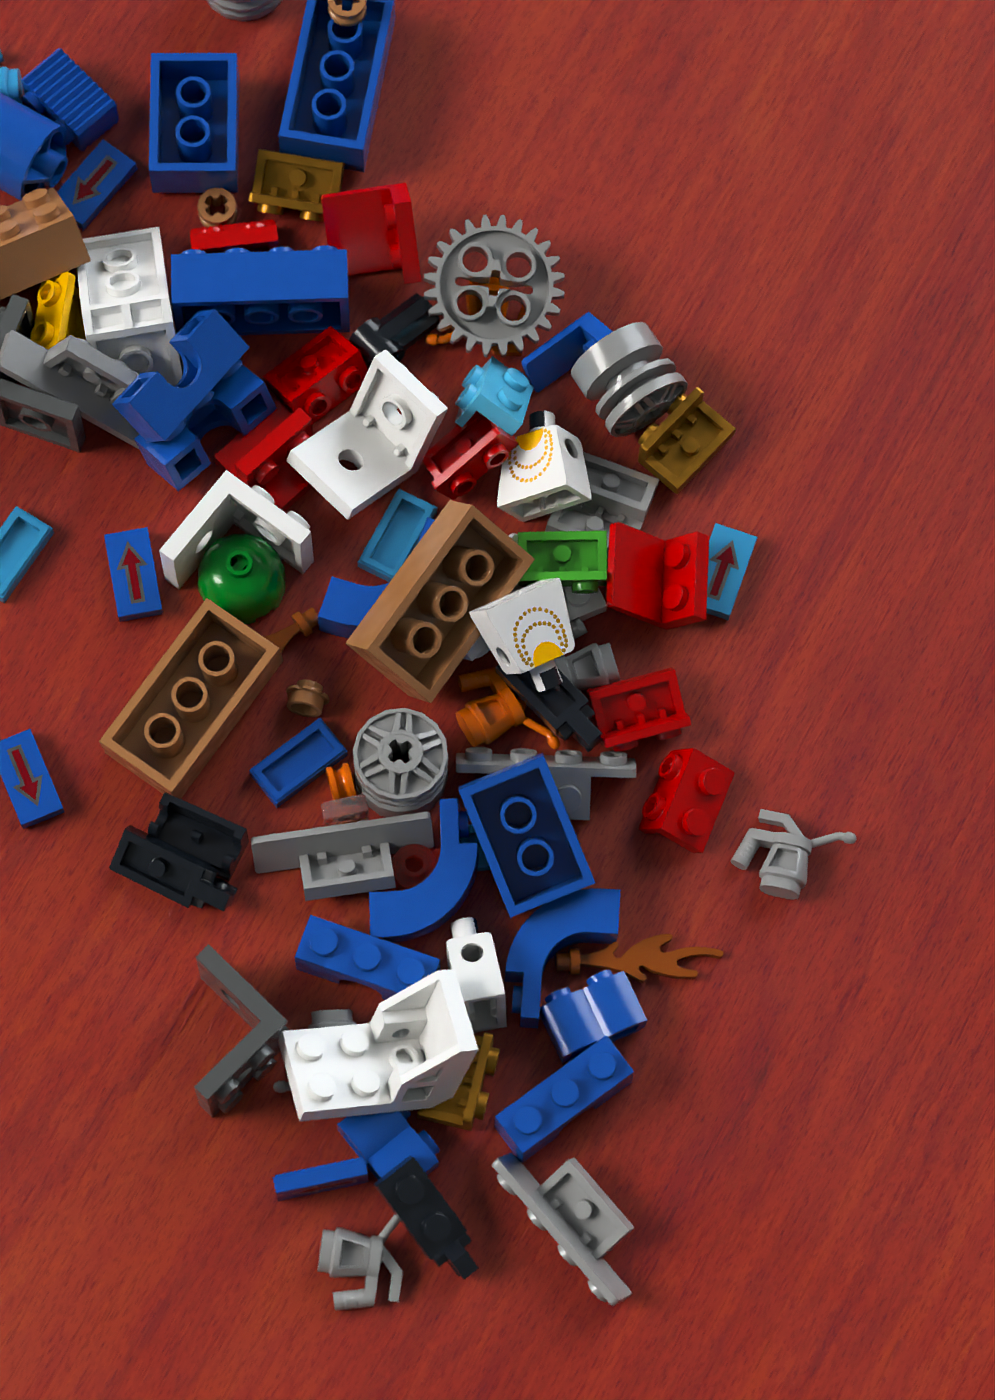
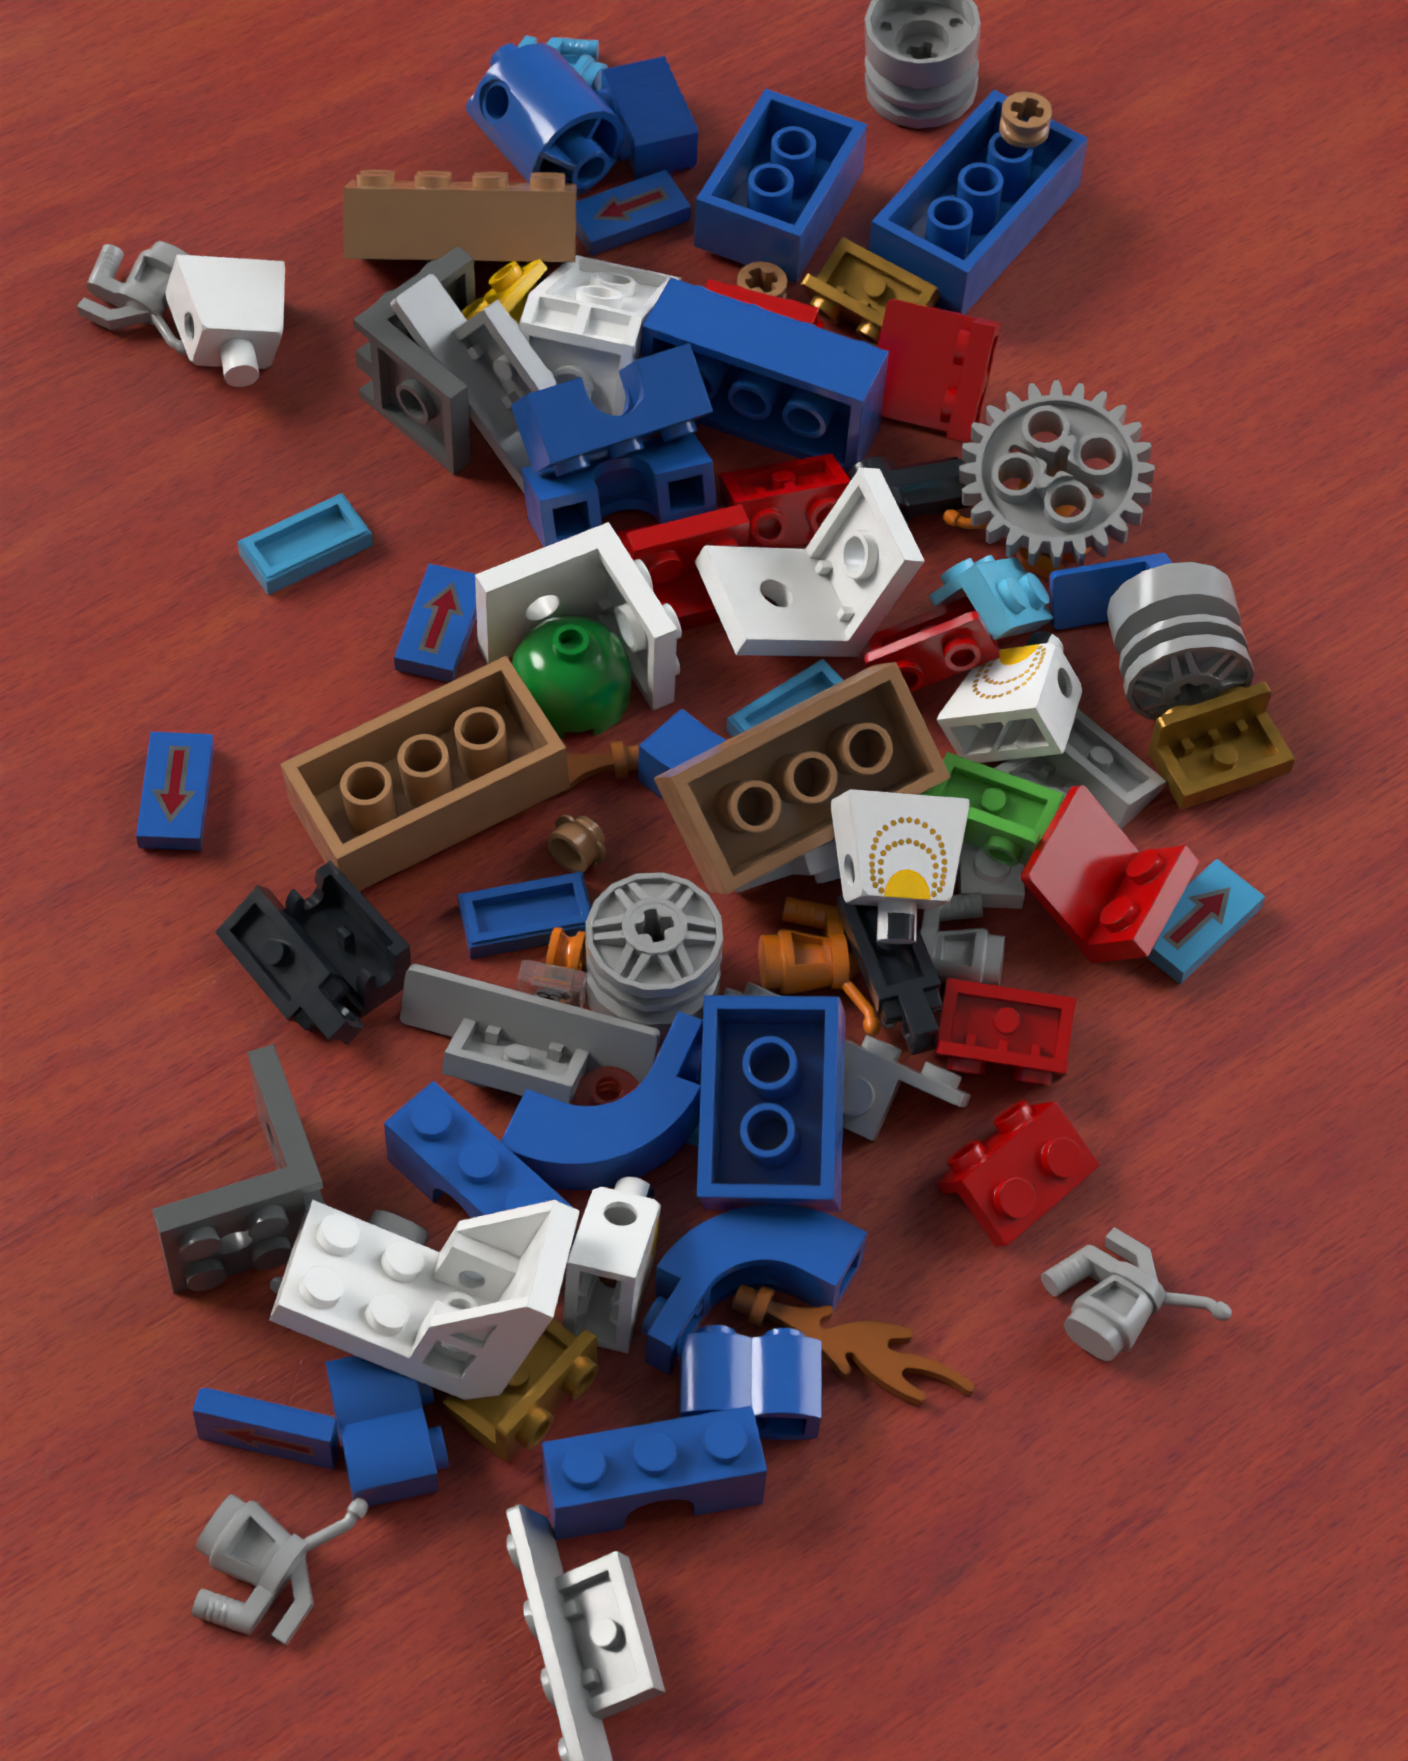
camera: 25 degrees right, 15 degrees down
(427, 1216) = (381, 1538): black hinge -> none

